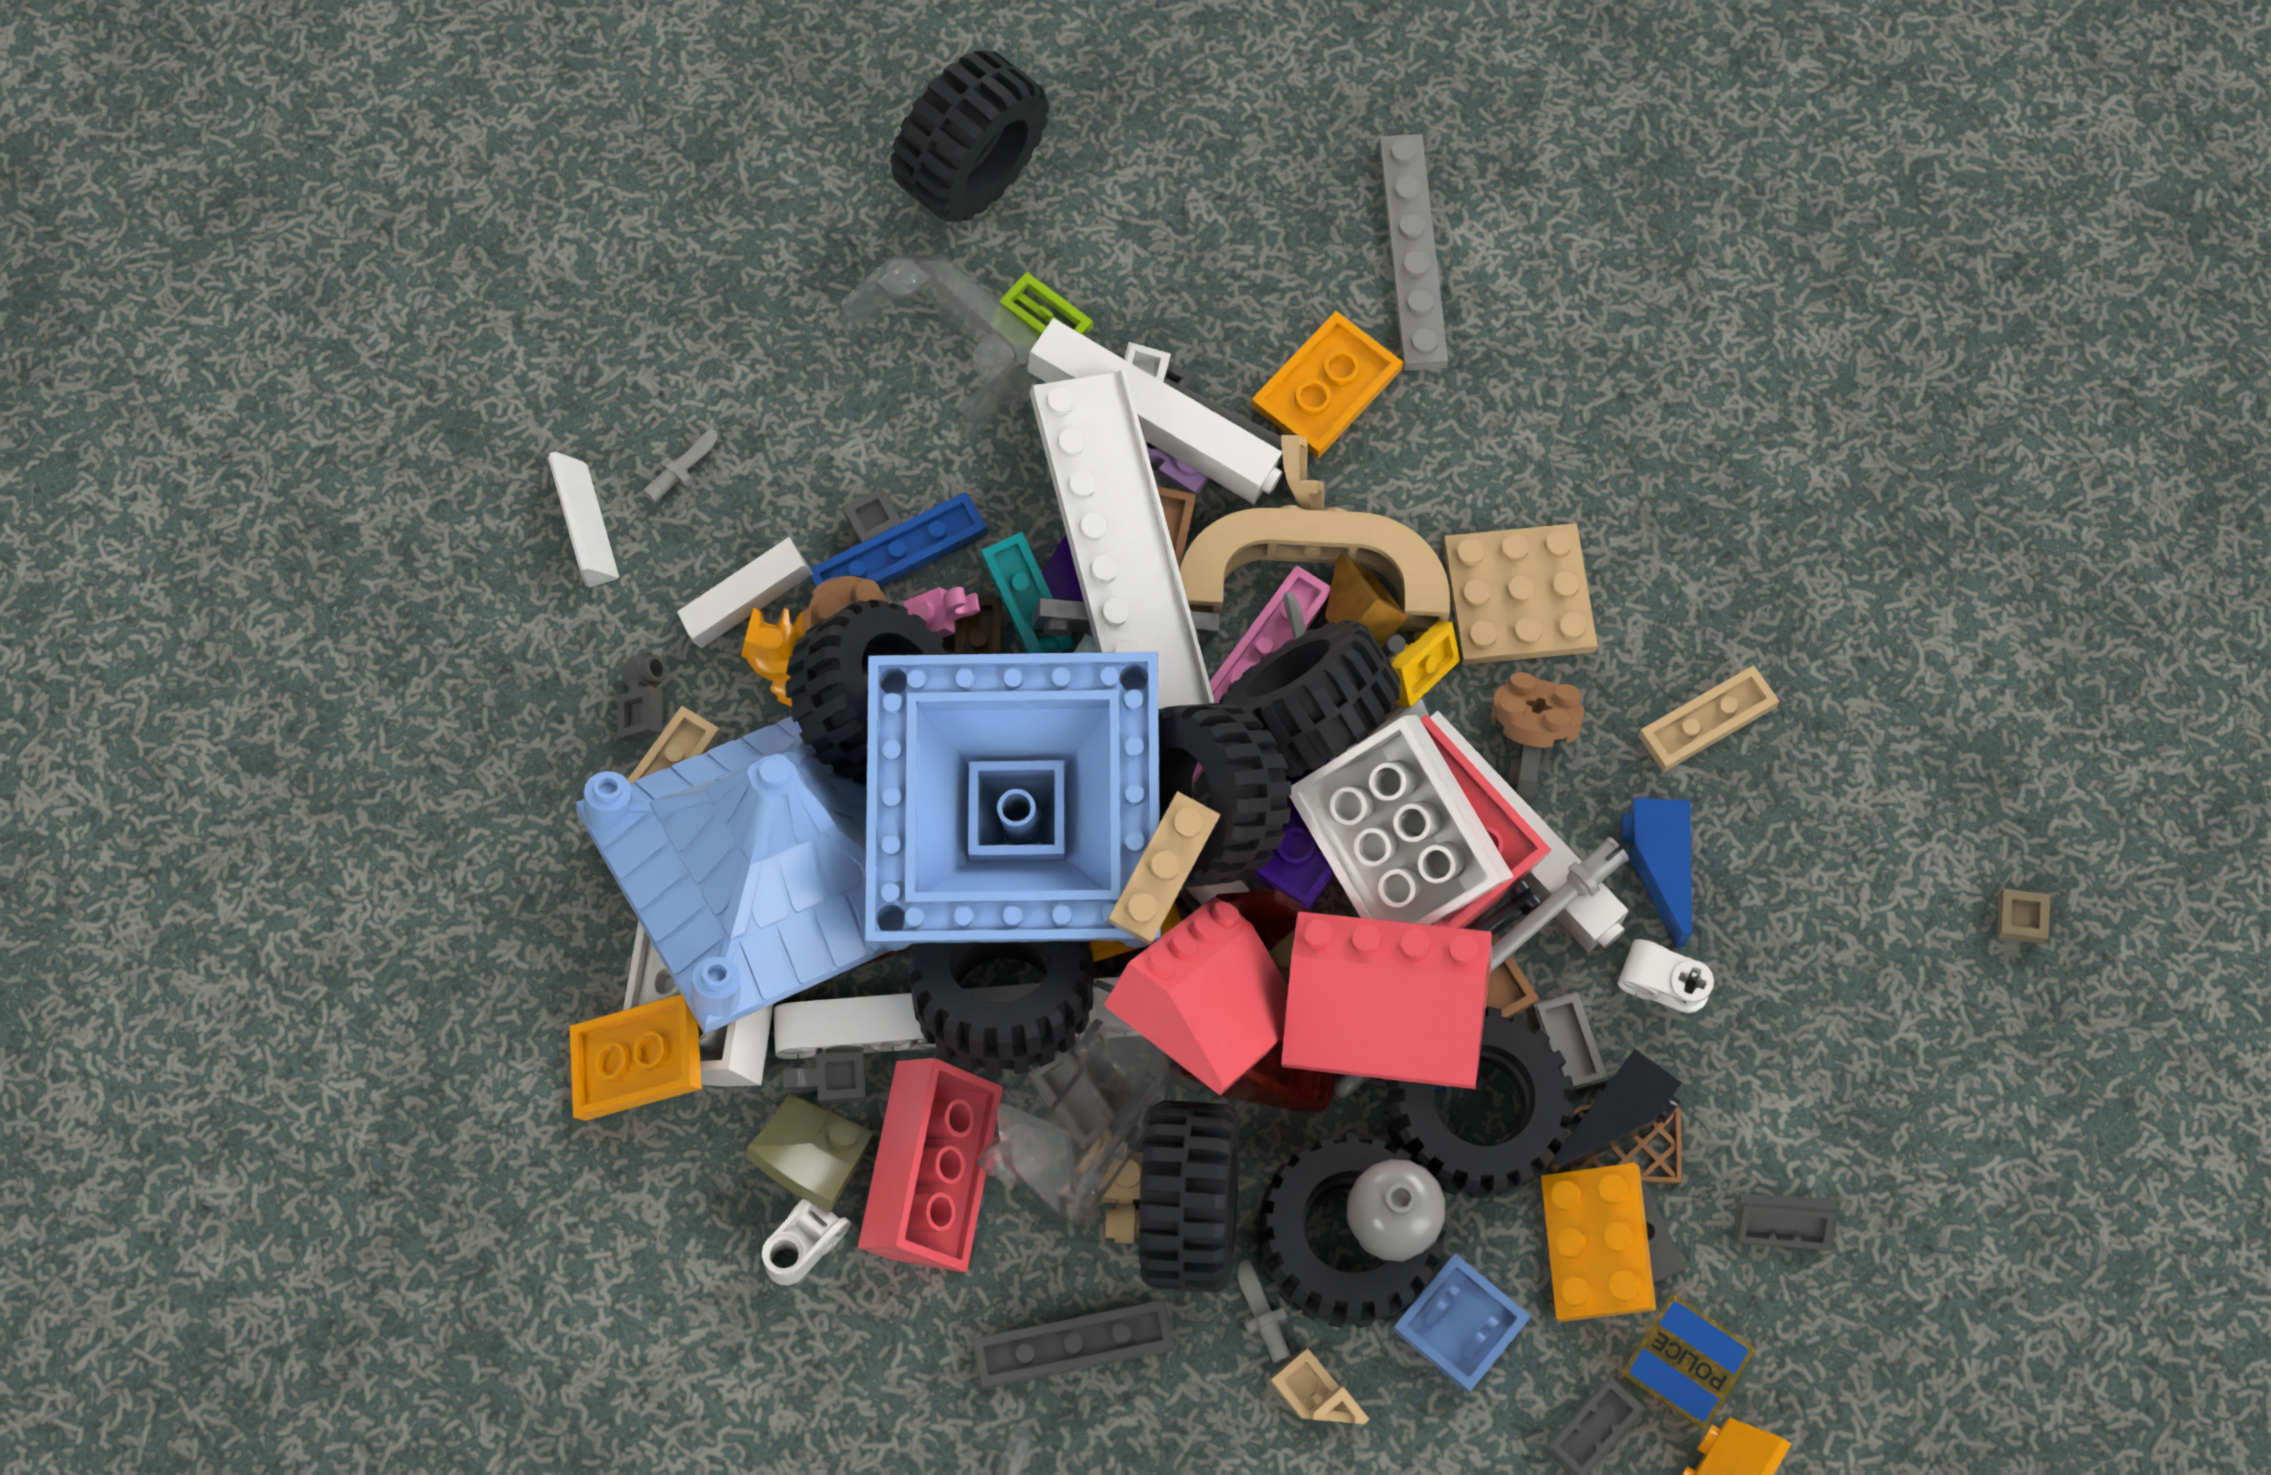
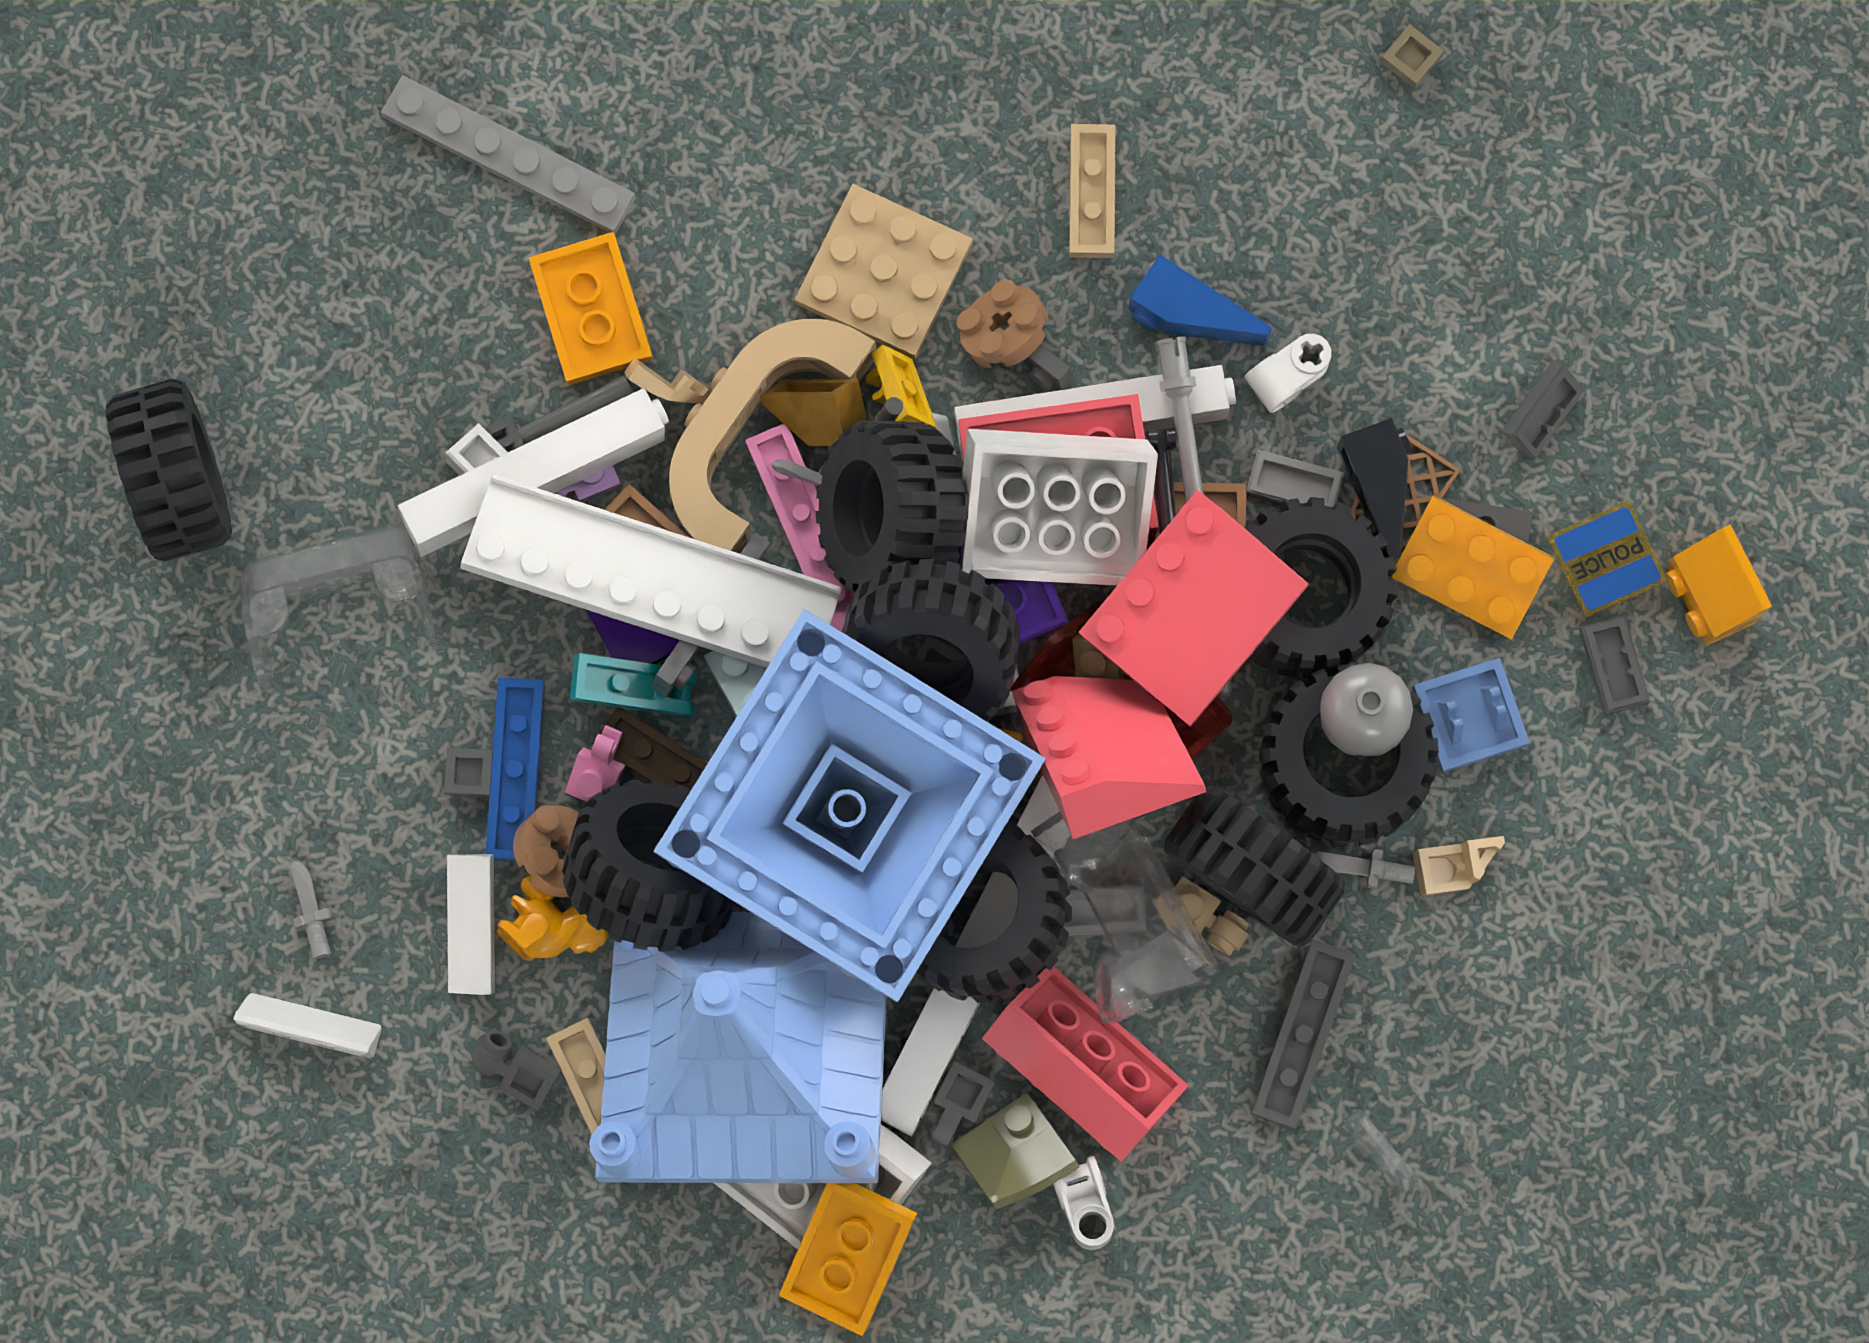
camera: 55 degrees left, 10 degrees up
(1027, 281) = (377, 484): lime tile -> none
(1163, 868) = (992, 719): tan plate -> none

